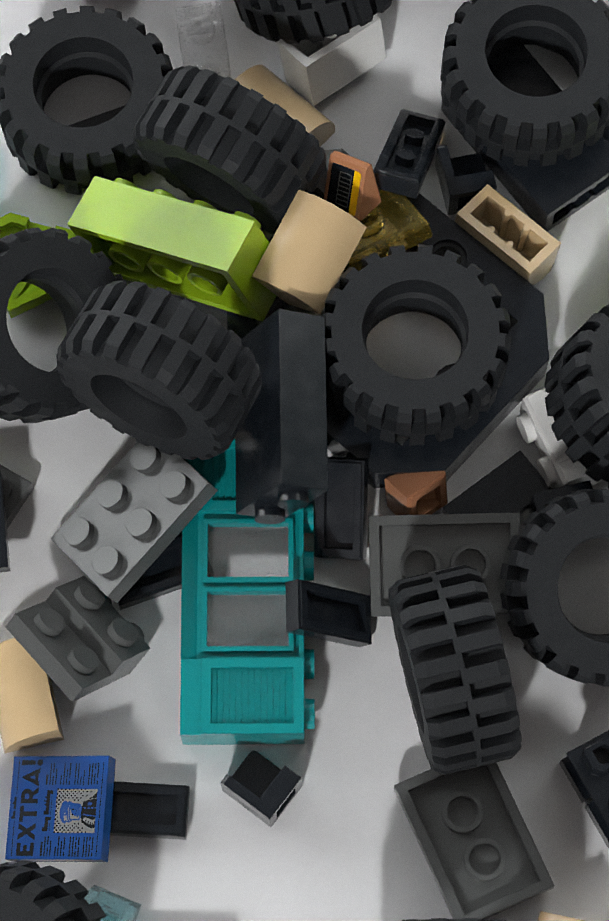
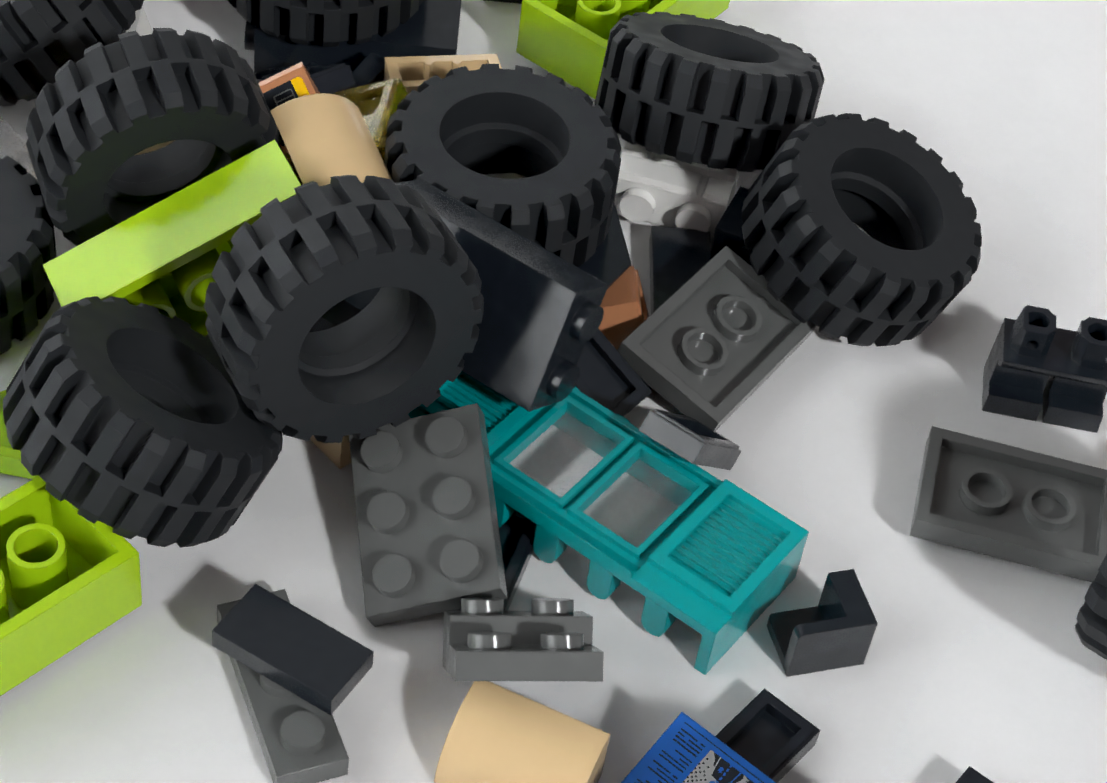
camera: 60 degrees left, 25 degrees down
(455, 669) = (888, 304): black tyre -> none

